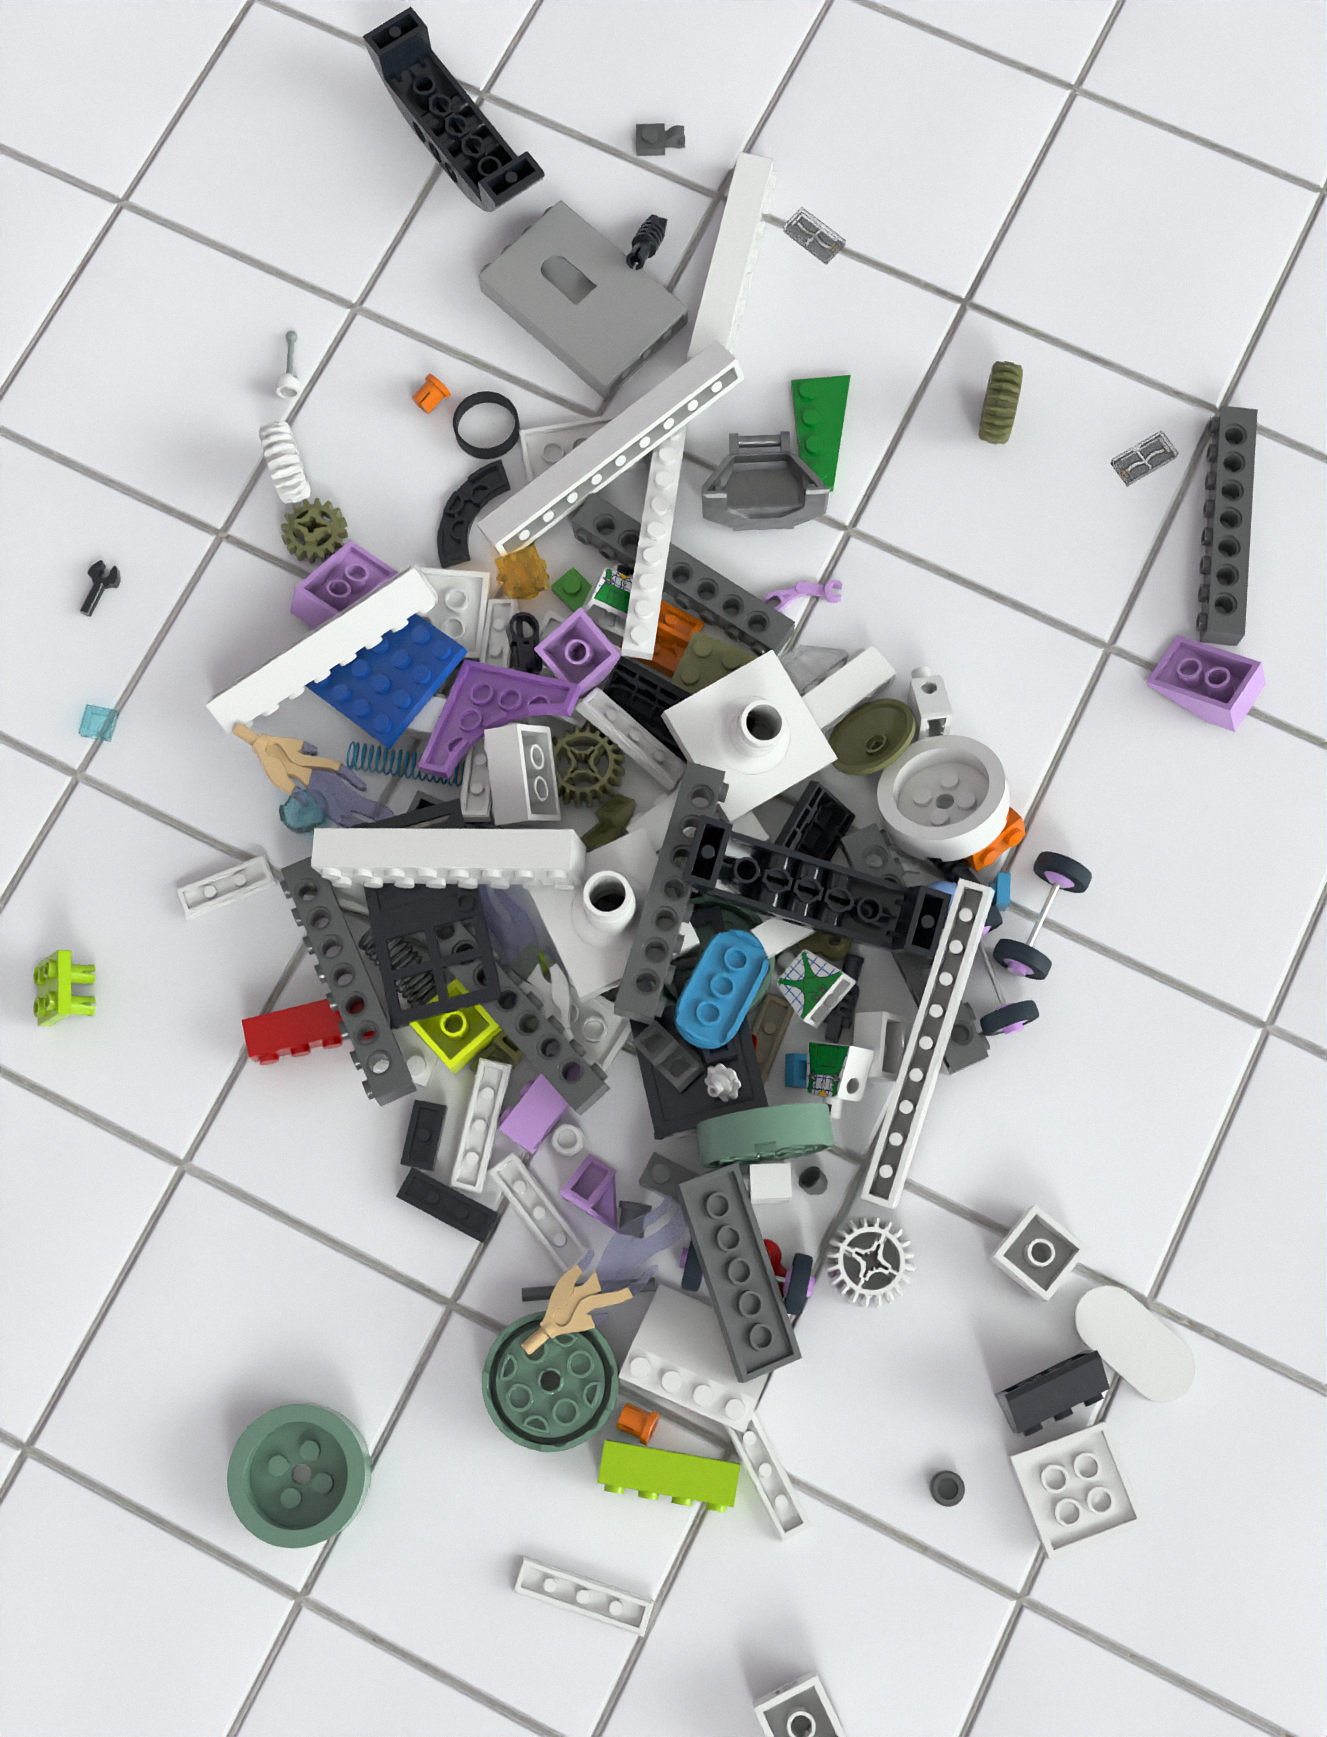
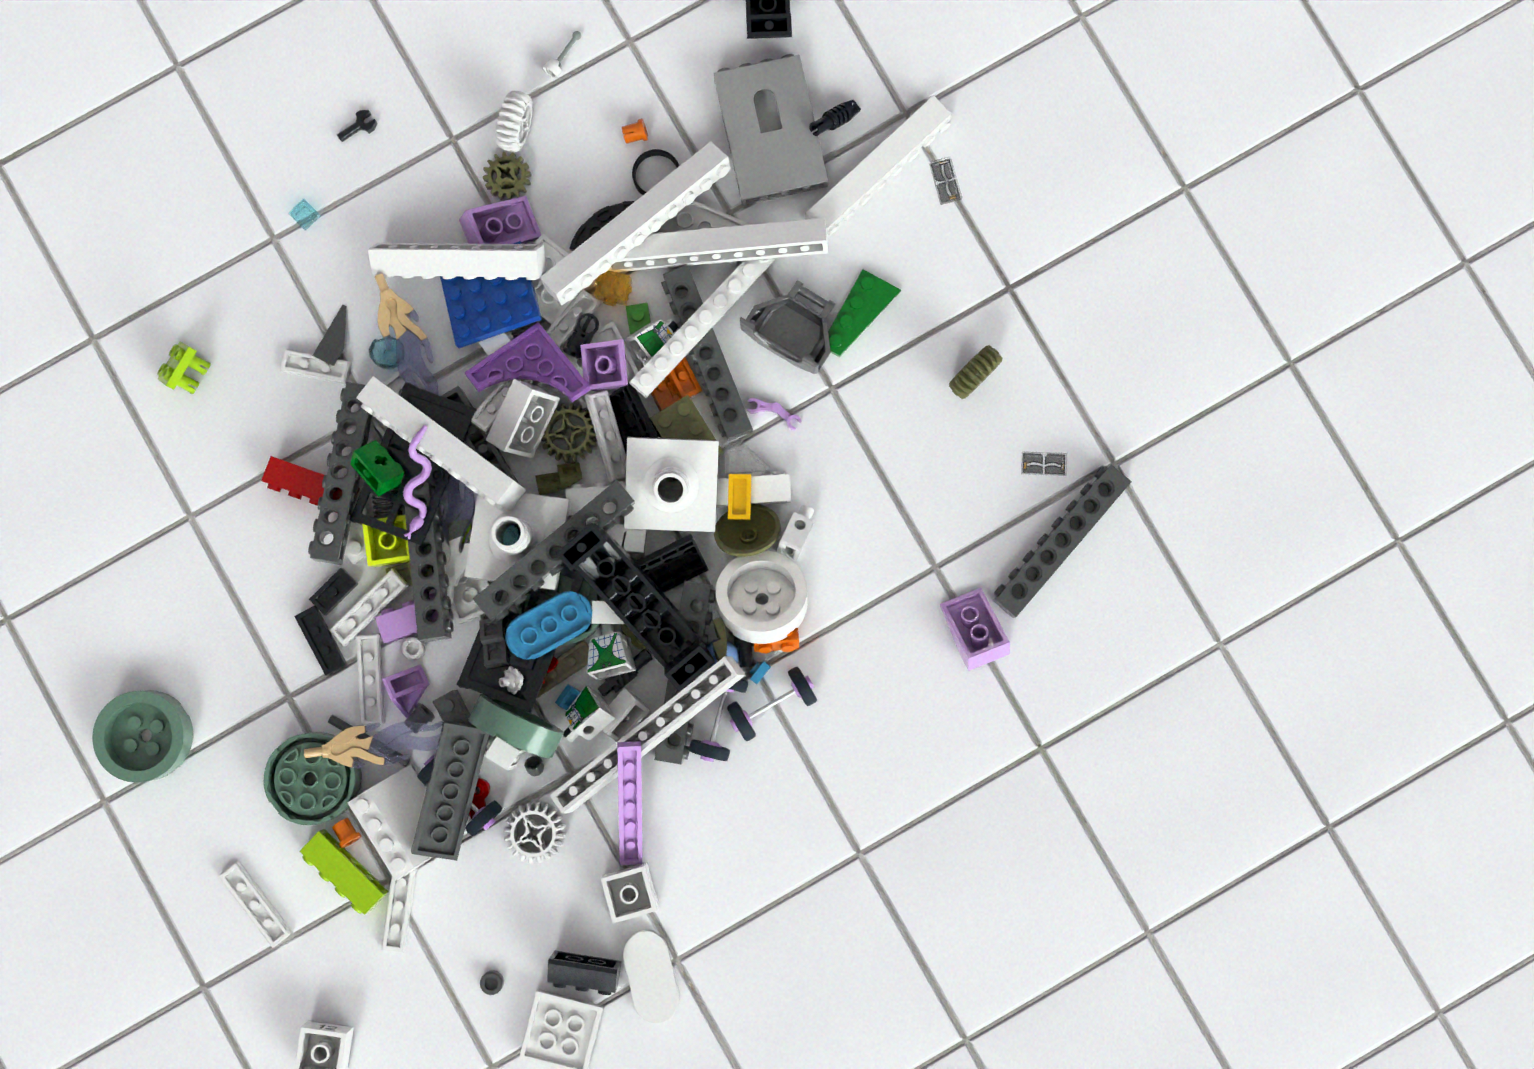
camera: 30 degrees right, 10 degrees up
(228, 842) = (333, 340): none -> dark grey sticker
(387, 939) = (377, 467): none -> green brick
(392, 757) = (457, 355): dark azure piece -> none
(479, 969) = (417, 522): none -> lavender animal
(503, 483) = (636, 223): none -> white brick
(653, 139) = (891, 47): dark grey plate -> none
(836, 704) = (739, 497): none -> yellow tile
(930, 874) = (719, 646): none -> olive slope
(965, 1138) = (629, 802): none -> lavender plate

